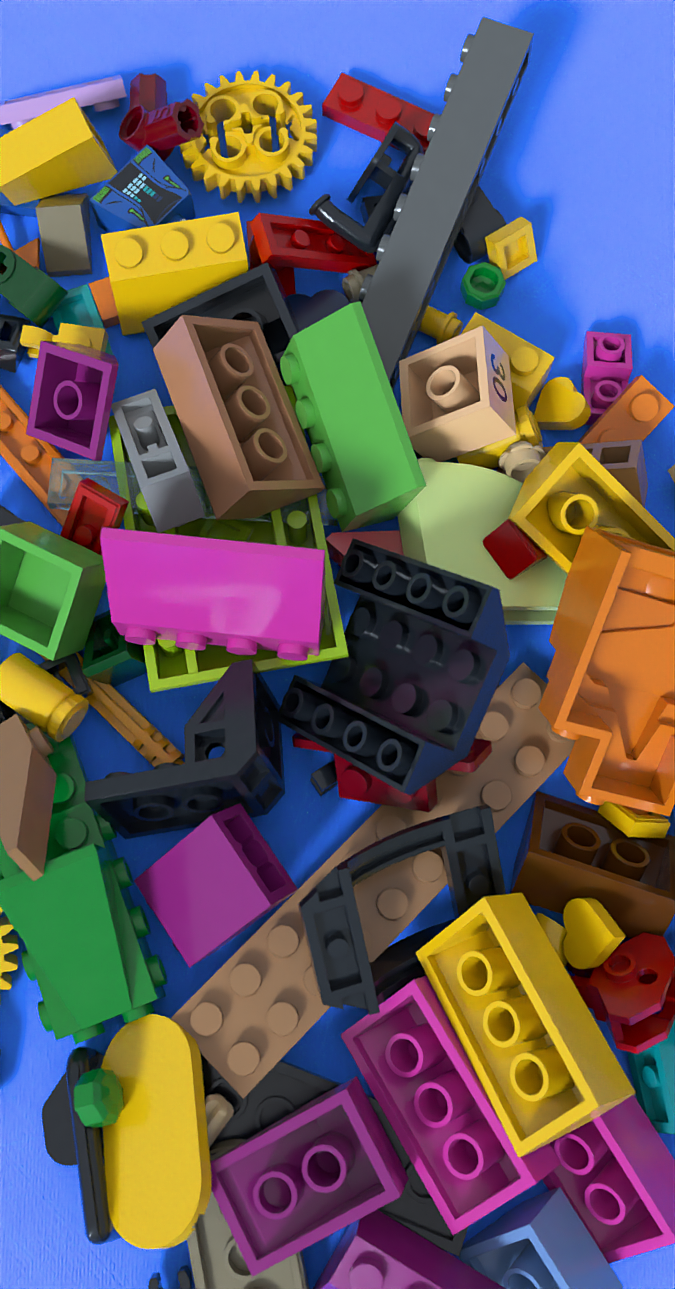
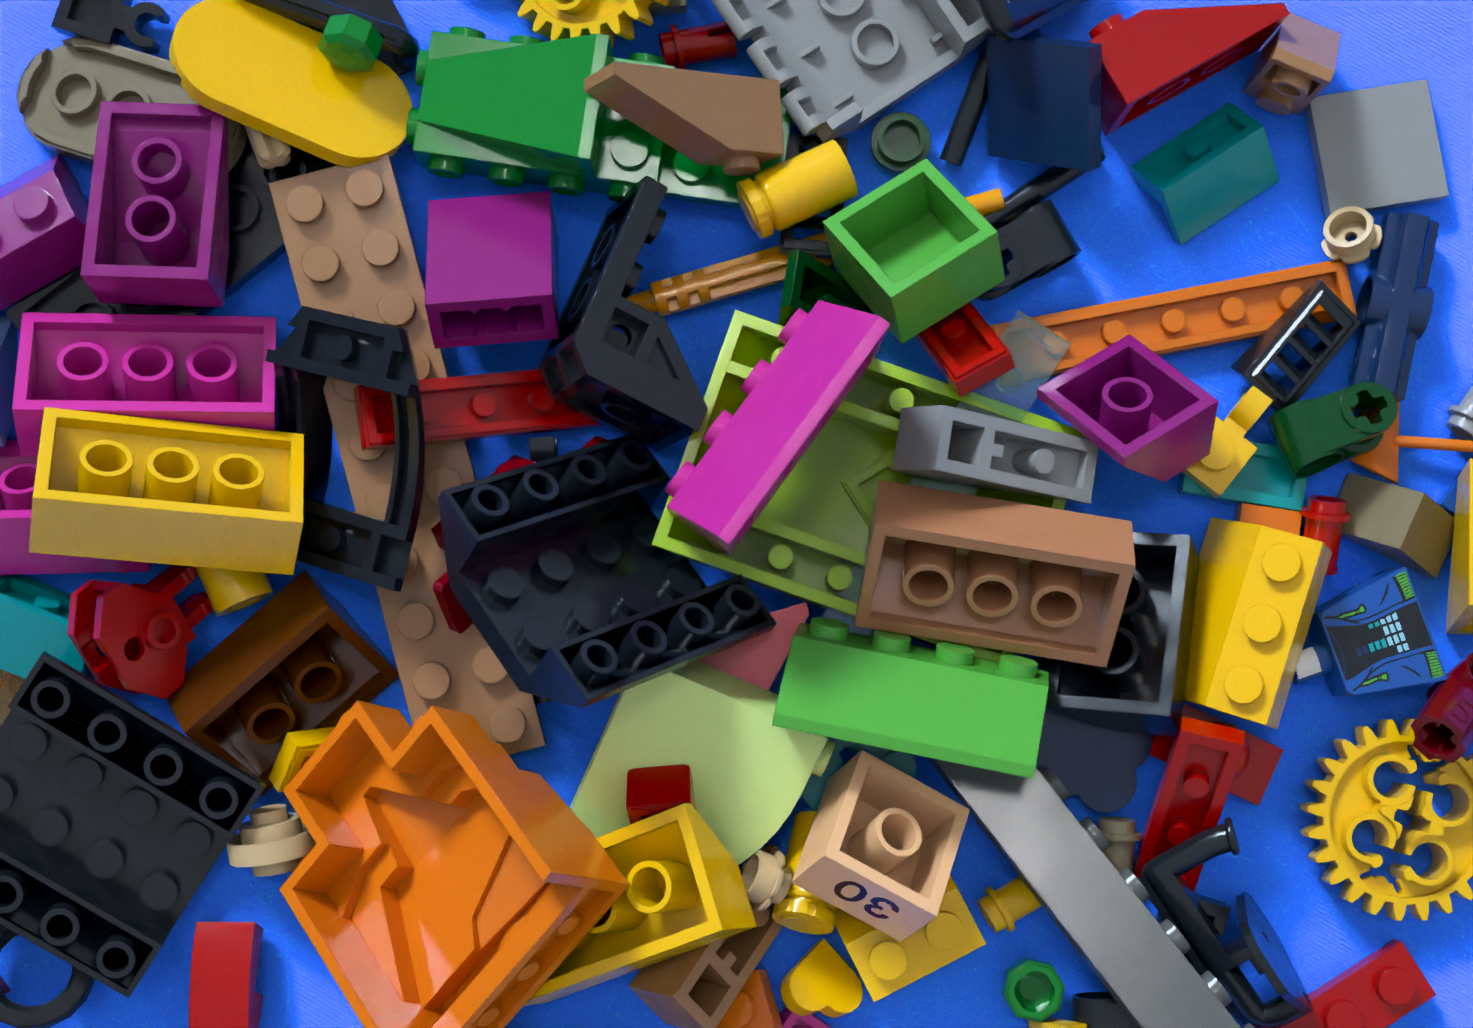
camera: 120 degrees right, 10 degrees up
(86, 265) = (1325, 524): none -> red pin
(328, 842) = (470, 409): none -> red tile
(590, 933) = (213, 622): yellow tile -> none

